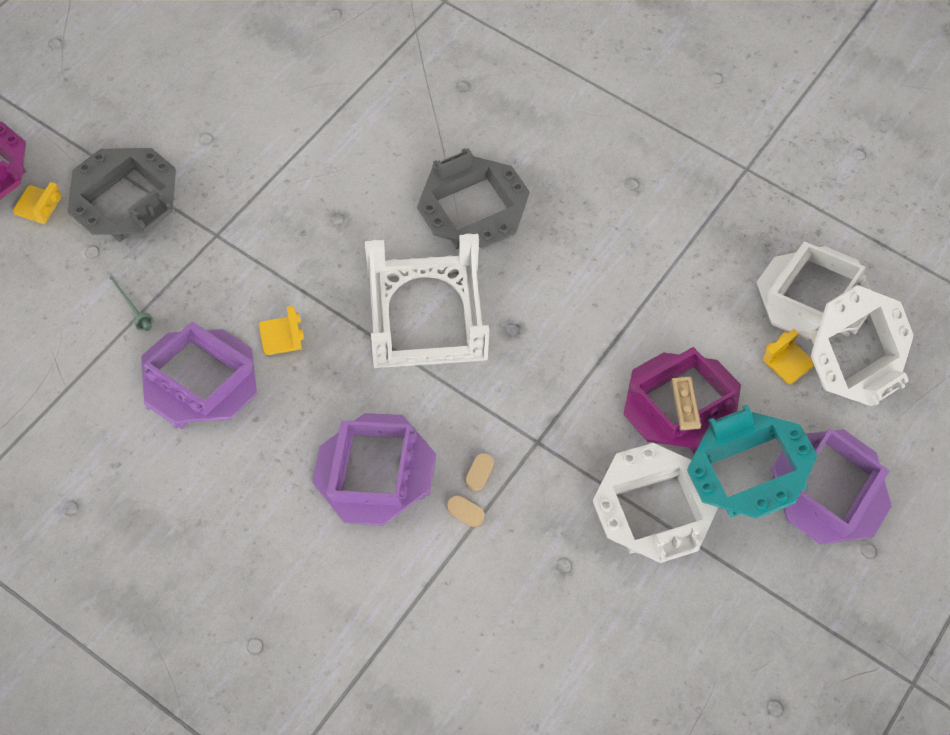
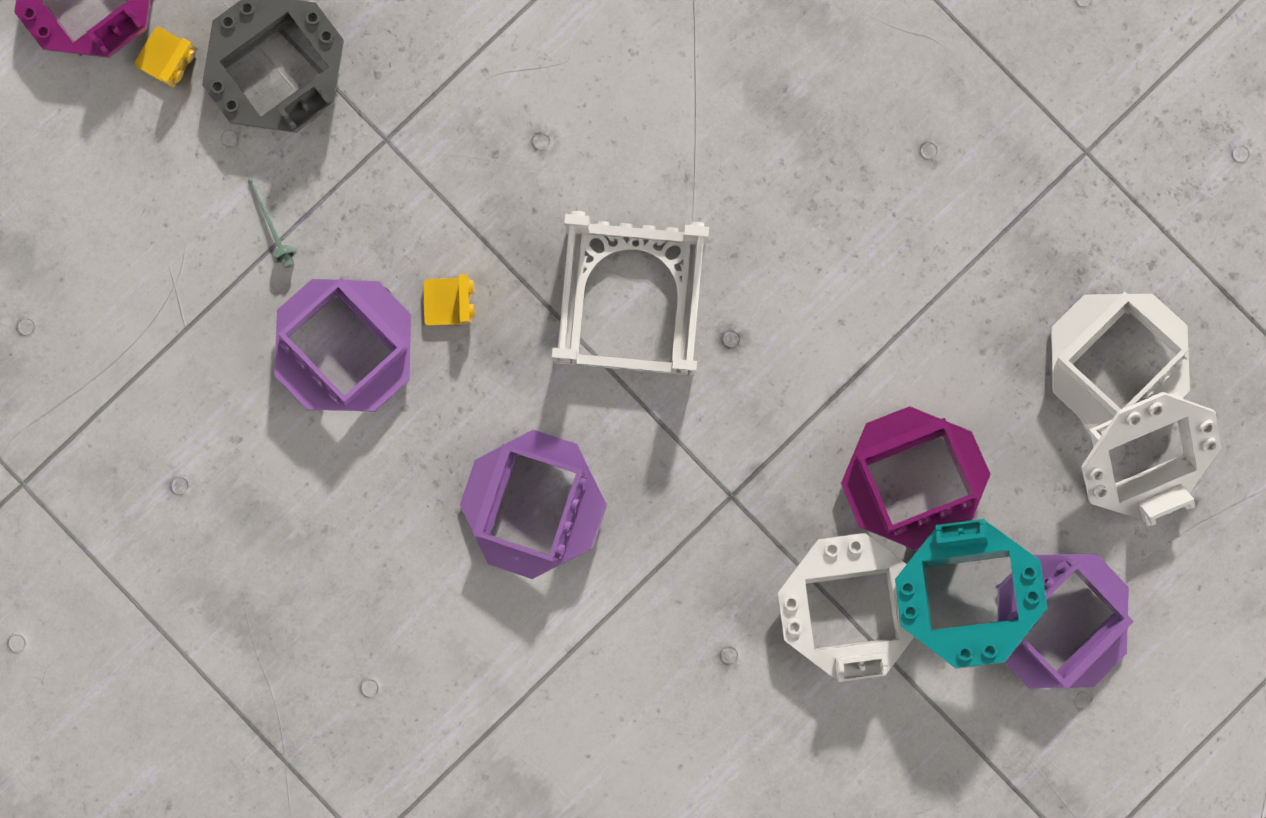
camera: 10 degrees right, 25 degrees up
(460, 173) = (728, 199): dark grey hinge -> none
(465, 511) = (630, 571): tan tile -> none
(479, 472) = (656, 524): tan tile -> none
(686, 403) = (913, 499): tan tile -> none
(787, 358) = (1060, 443): yellow bracket -> none

